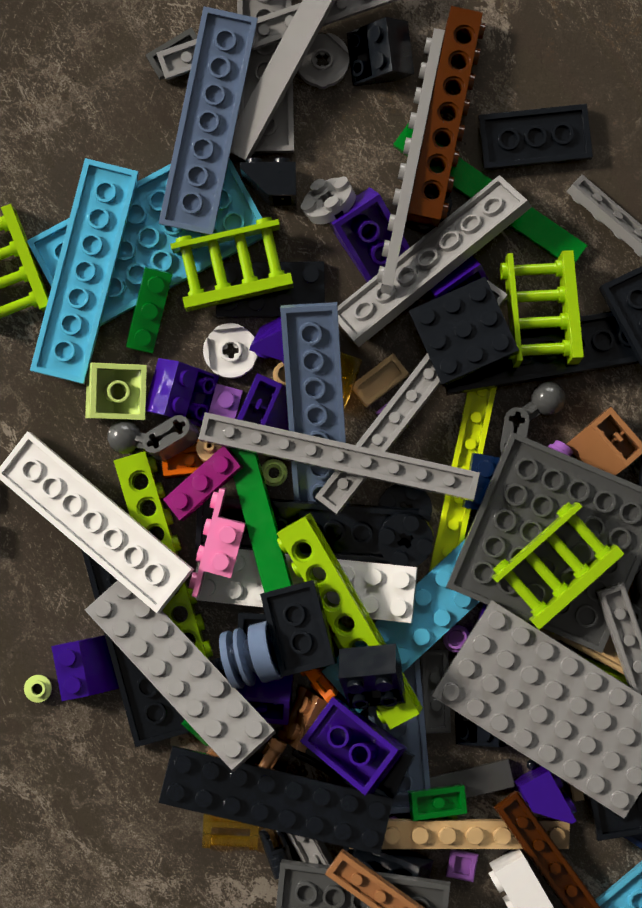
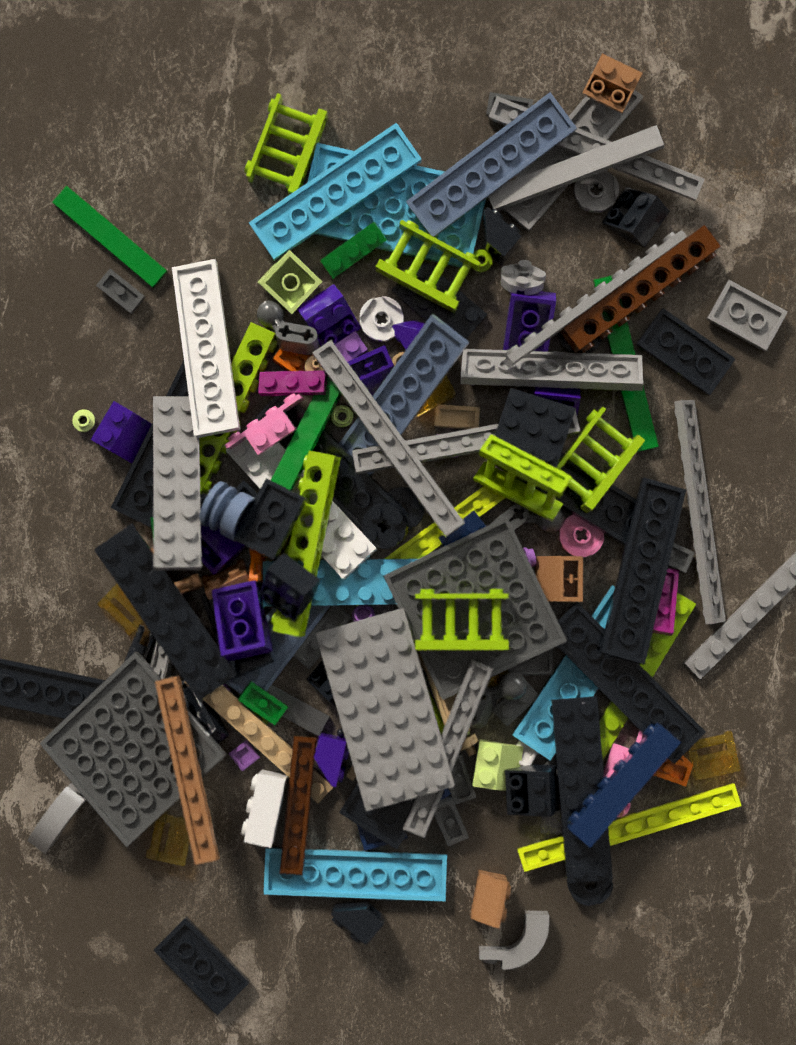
camera: 45 degrees right, 0 degrees up
(276, 208) = (488, 260): none -> lime plate
(491, 371) = (527, 467): none -> lime fence
(561, 55) = (746, 315): none -> light grey plate
(601, 398) = (569, 540): none -> bright pink plate

